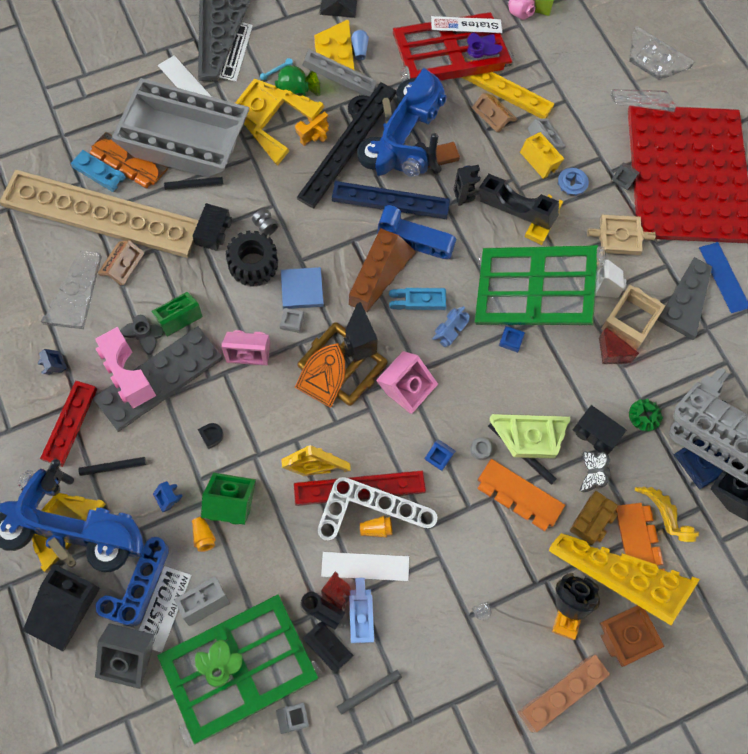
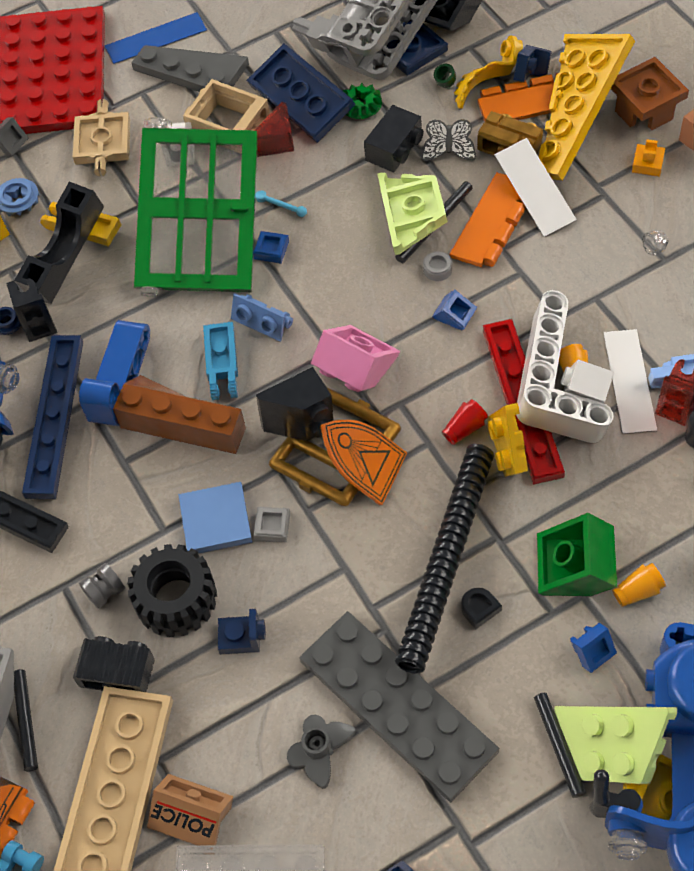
camera: 85 degrees left, 10 degrees down
(69, 422) = (502, 828): red plate -> none
(96, 490) = (615, 740): none -> yellowish green wing
(133, 384) = (430, 716): bright pink arch -> none
(177, 313) = (277, 693): green slope -> none
(220, 296) = (241, 633): none -> dark blue bracket
(239, 413) = (444, 560): none -> black piece
(246, 347) = (330, 570): bright pink slope -> none
(344, 445) = (465, 421): none -> red cone
(354, 526) = (587, 380): none -> white brick
(542, 527) = (535, 187): none -> white sticker
(559, 337) = (261, 196): none -> medium azure hinge
(576, 596) = (617, 142): black cone -> none
(654, 371) = (310, 97): none -> dark blue tile
(668, 477) = (442, 73): none -> dark green hinge
(674, 546) = (532, 61): none -> dark blue bracket

